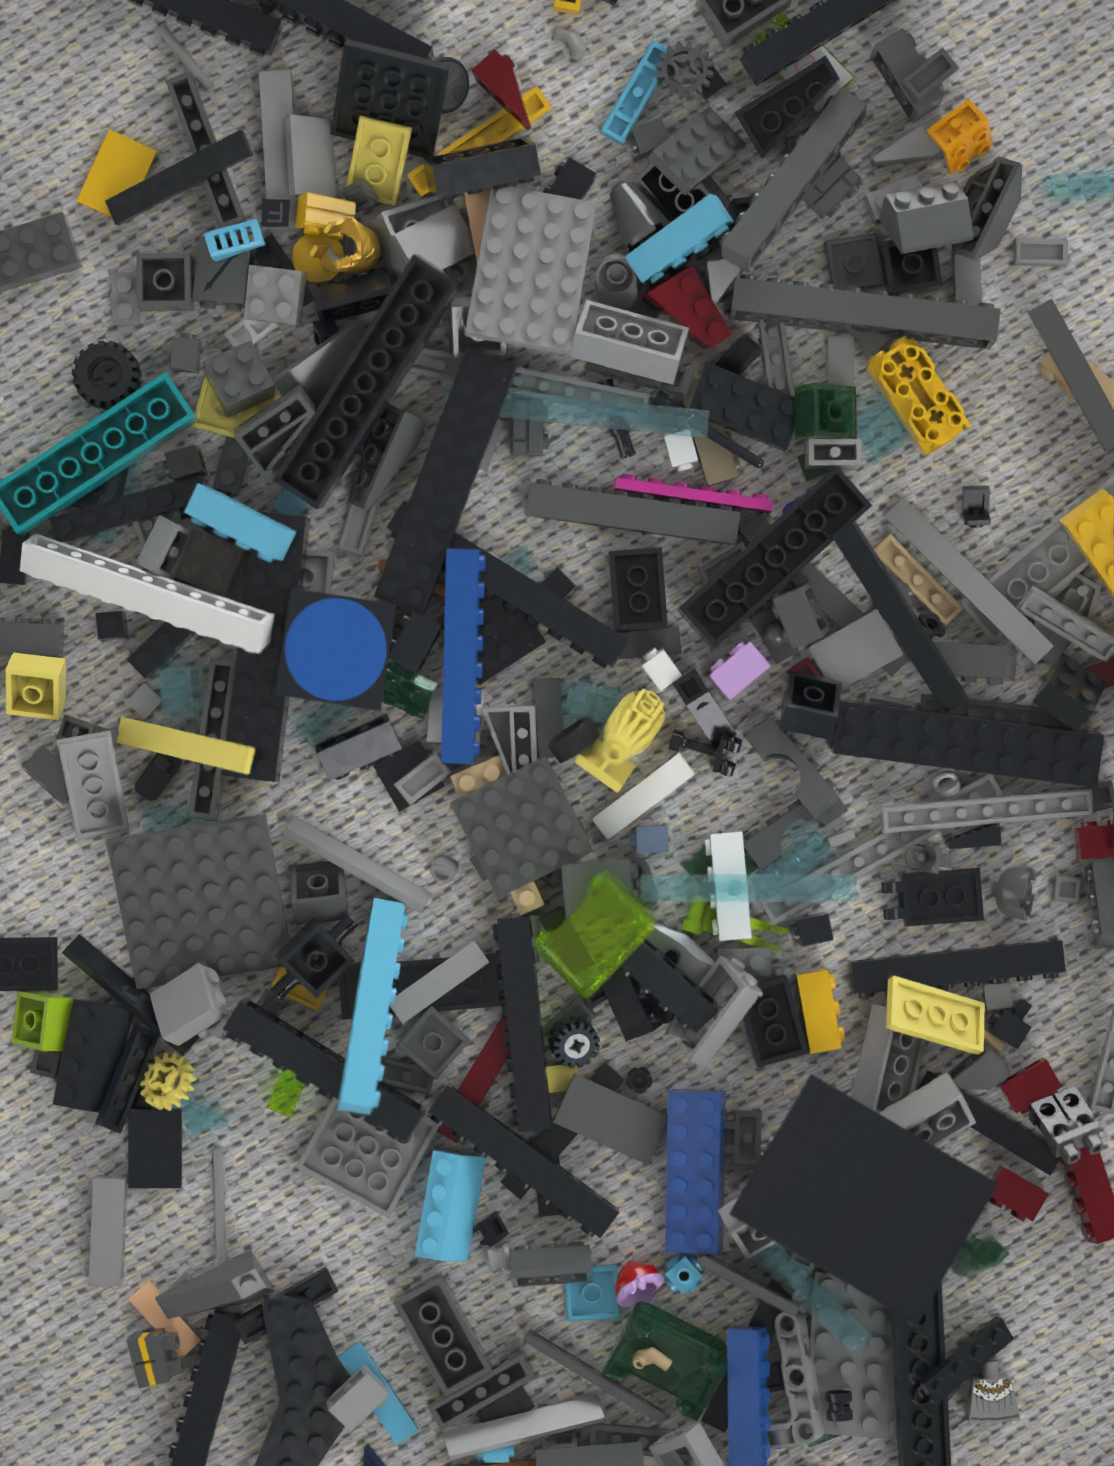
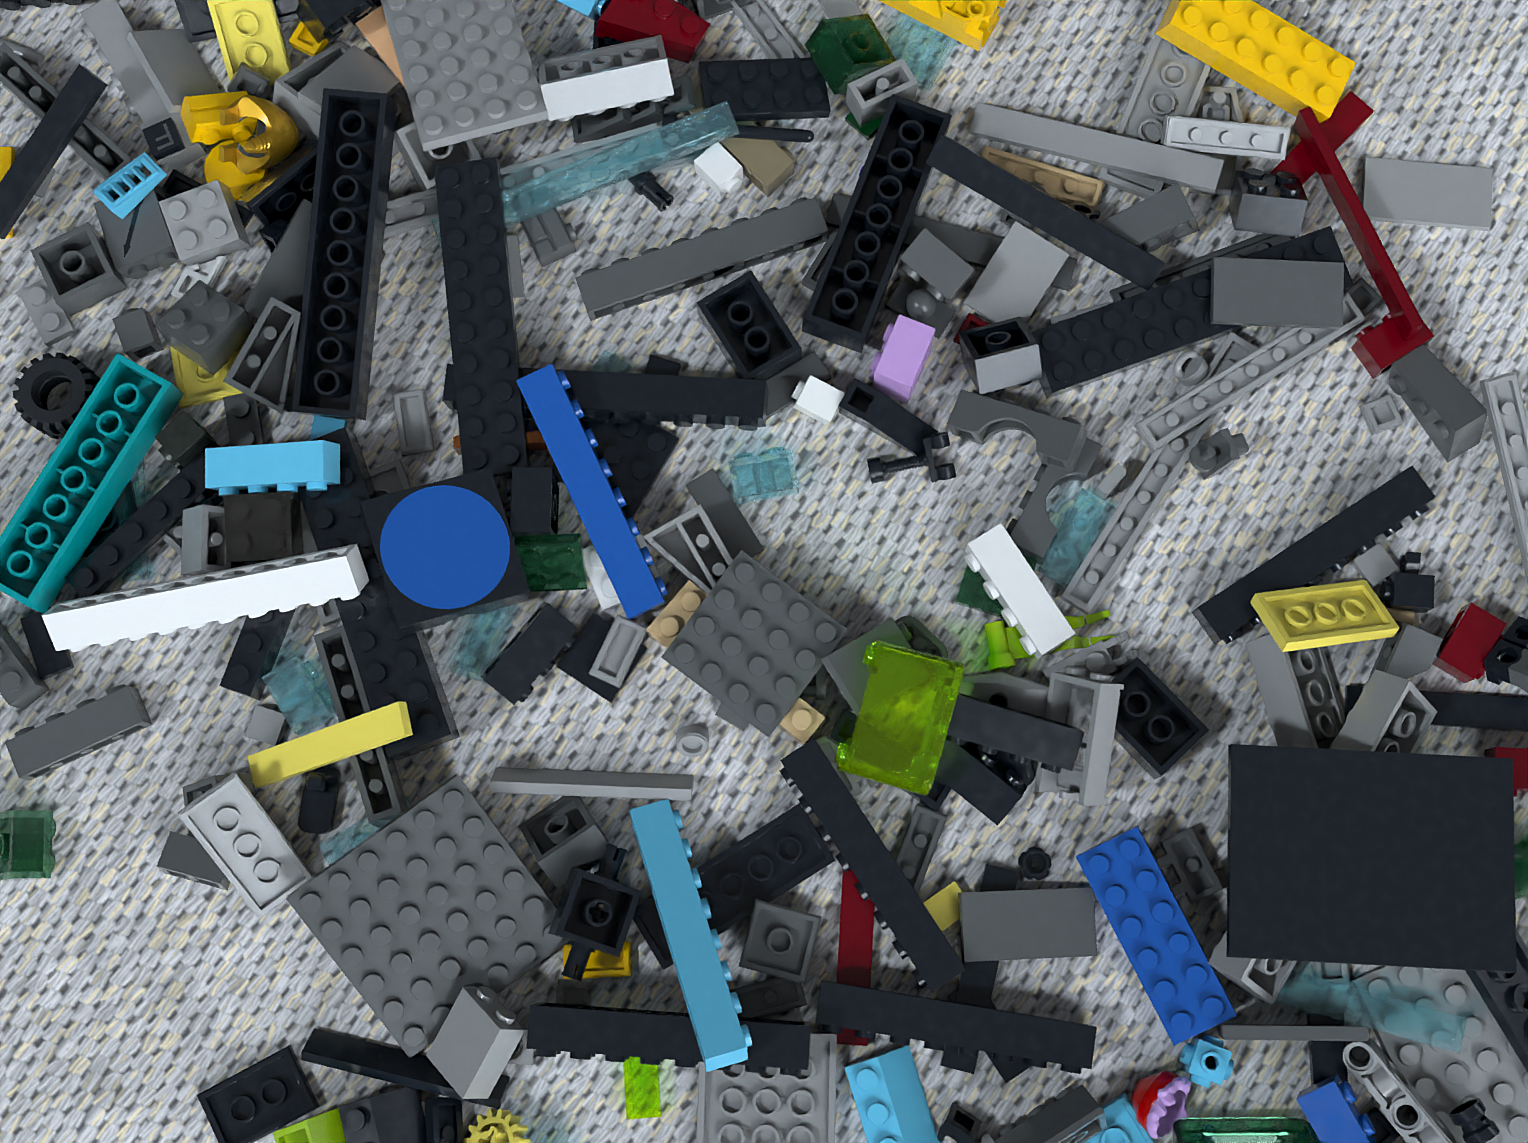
camera: 20 degrees left, 10 degrees down
(35, 686) = (130, 768): light yellow brick -> none
(111, 625) = (188, 659): black brick -> none
(384, 453) = (402, 325): dark grey wedge -> none
(438, 981) = (750, 868): light grey tile -> none
(565, 1038) = (927, 857): black wheel -> none
(574, 739) = (763, 520): black tyre -> none
(616, 282) = (561, 32): light grey cap -> none
(625, 736) = (817, 473): light yellow piece -> none
(643, 796) = (871, 547): white slope -> none
(650, 839) = (904, 588): sand blue brick -> none
(682, 491) = (824, 185): dark pink plate -> none
(740, 355) = (731, 41): black piece -> none
(747, 887) = (1041, 577): clear light blue plate -> none
(812, 929) = (1135, 592): black brick -> none
(819, 1011) = (1192, 679): yellow brick -> none
(936, 898) = (1248, 493): black tile -> none
(975, 506) = (1058, 72): black bracket -> none
(979, 837) = (1261, 401): black slope -> none
(1014, 892) = (1329, 442): dark grey cylinder -> none
(1034, 766) = (1277, 293): none -> dark grey tile

